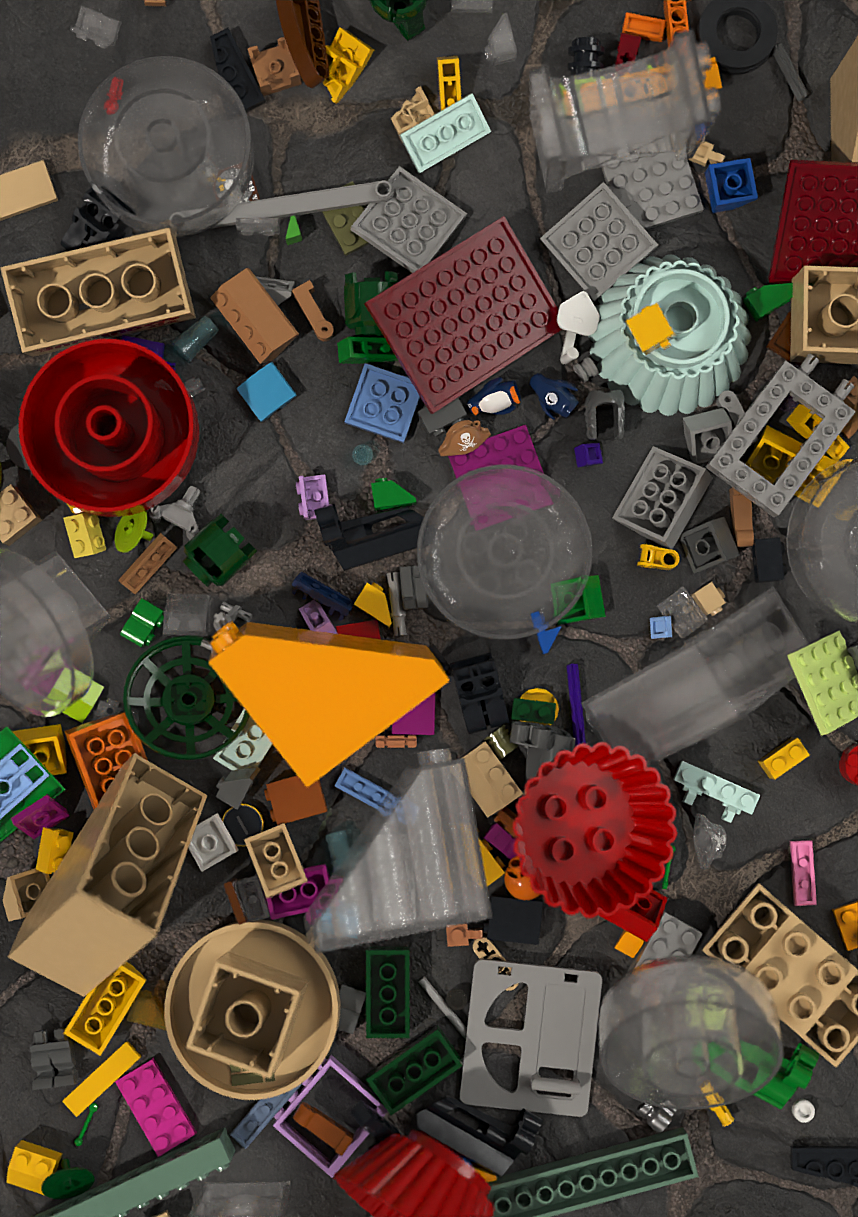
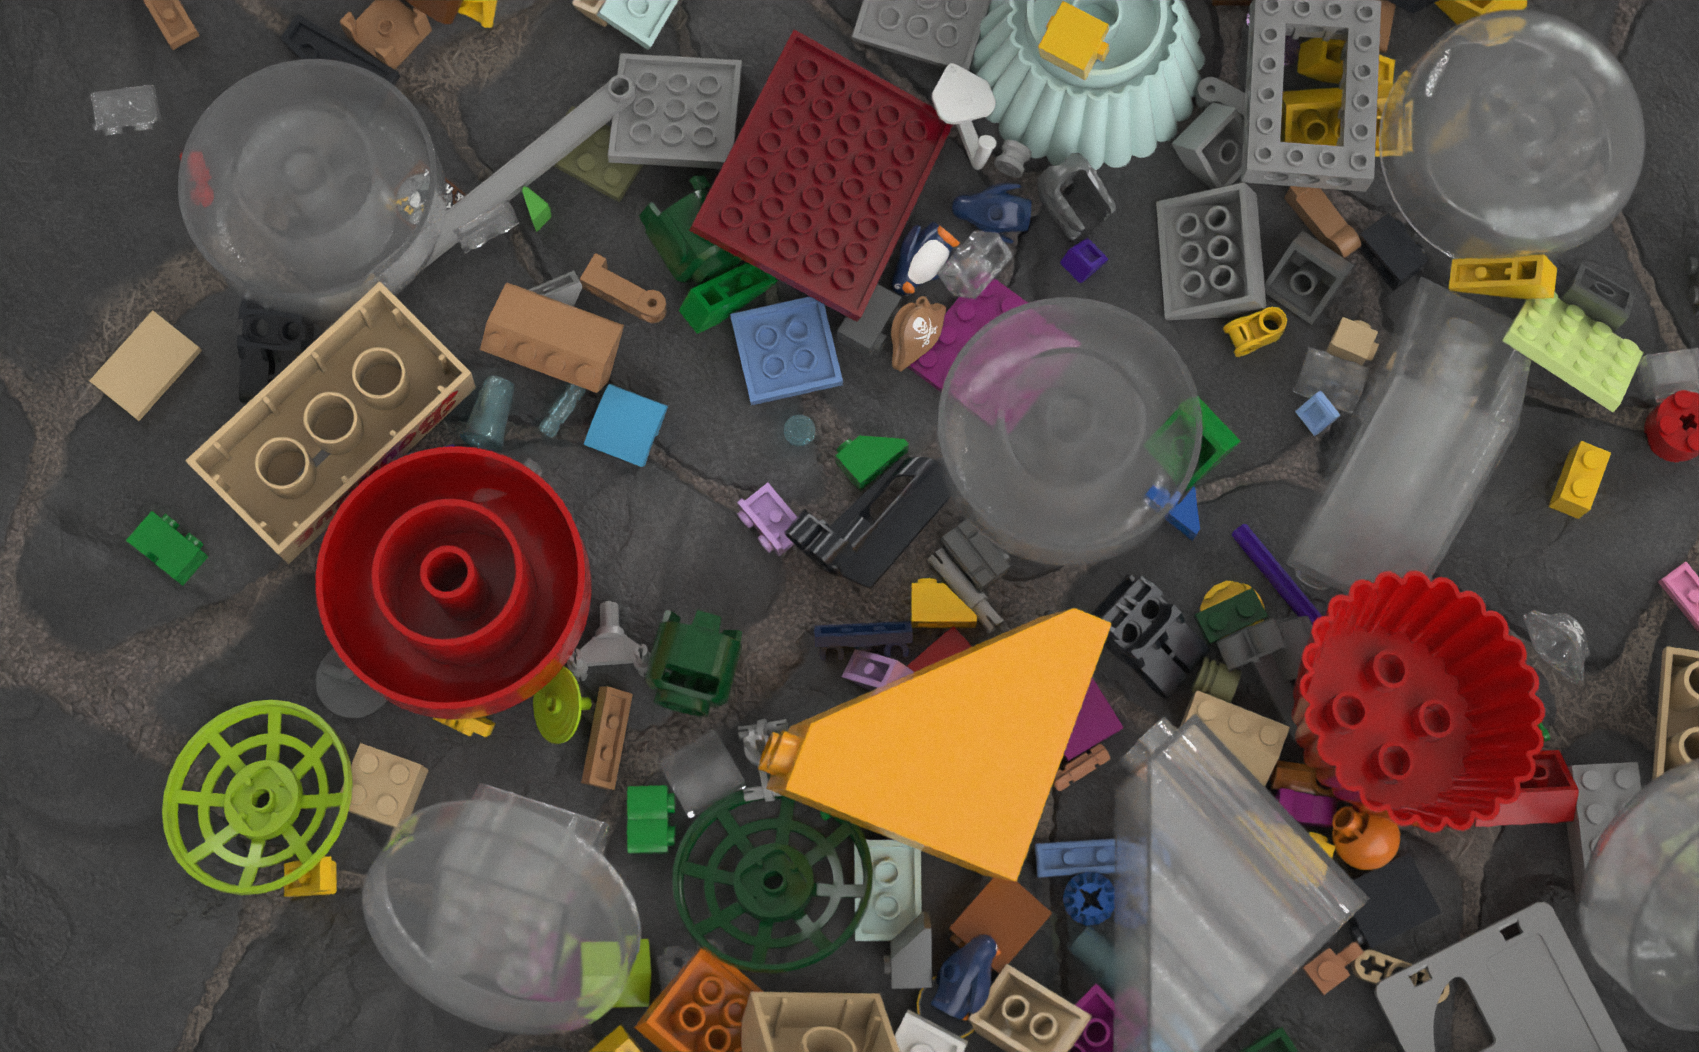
camera: 30 degrees left, 10 degrees down
(84, 534) = (498, 751): light yellow bracket -> none
(235, 360) = (561, 409): none -> clear light blue axle
(256, 817) = (966, 978): none -> dark blue animal
(359, 807) = (1074, 900): none -> blue gear
(521, 420) = (975, 264): none -> clear brick
(629, 944) = (1552, 839): light orange slope -> none
(699, 781) = (1498, 575): light aqua hinge -> none
(818, 617) = (1507, 277): none -> yellow slope

